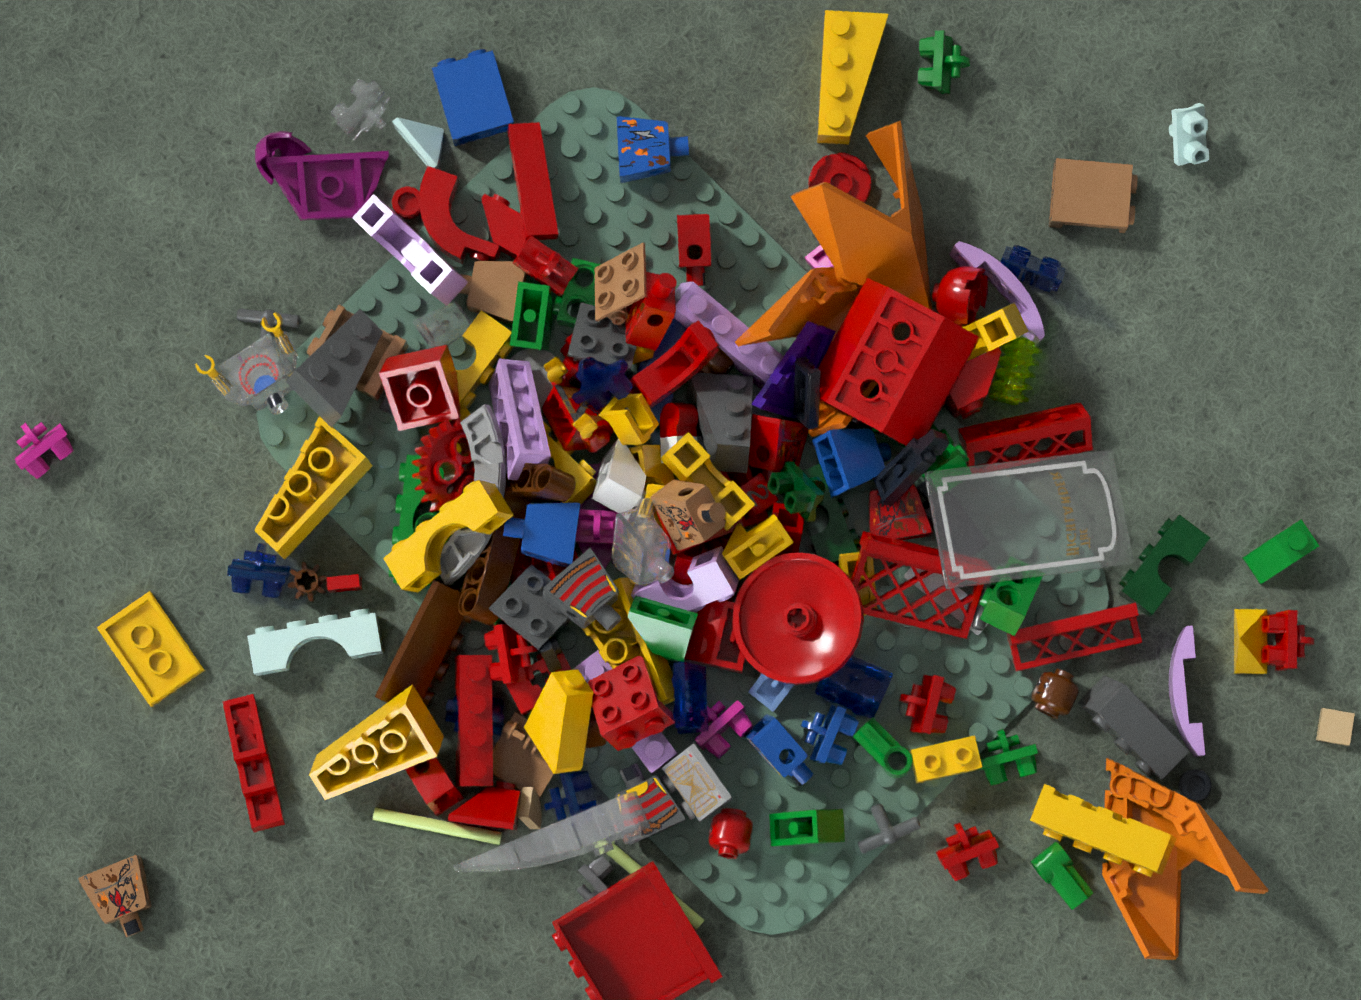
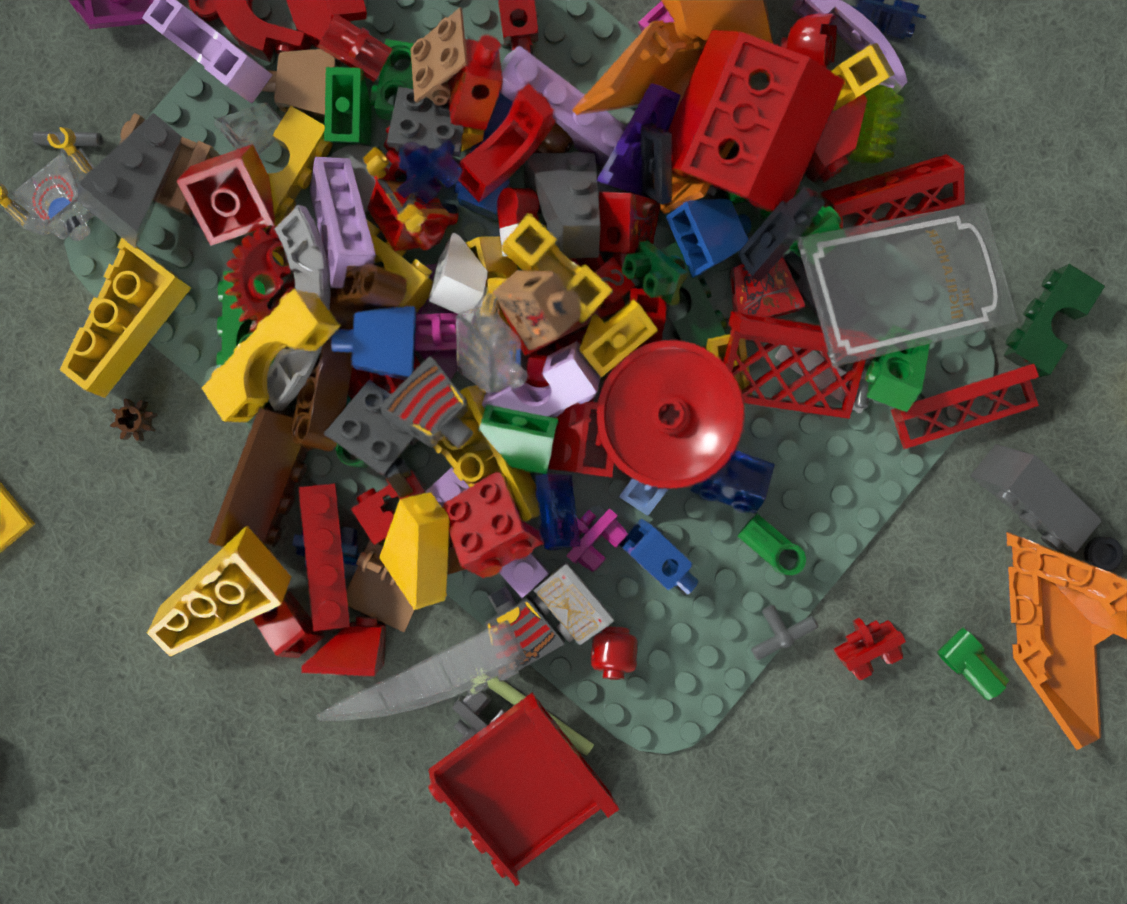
camera: 10 degrees left, 5 degrees up
(253, 762) = (94, 620): red slope -> none
(272, 575) = (75, 408): clear blue hips -> none
(274, 650) = (106, 496): light aqua arch -> none
(344, 583) = (172, 418): red tile -> none
(437, 826) = (284, 668): yellowish green bar -> none
(512, 653) = (355, 481): red hips -> none
(530, 808) = (395, 643): tan tile -> none
(572, 783) = (436, 615): clear blue hips -> none
(630, 419) = (464, 209): yellow window -> none
(807, 827) = (696, 639): green slope -> none
(835, 722) = (706, 534): blue hips -> none
(924, 703) = (812, 494): red hips -> none
(945, 759) = (841, 552): yellow brick -> none
(1023, 758) = (920, 541): green hips -> none
(1055, 693) = (949, 469): reddish brown head -> none
(1103, 831) = (1022, 616): yellow wedge -> none
(1191, 733) = (1079, 454): lavender slope -> none

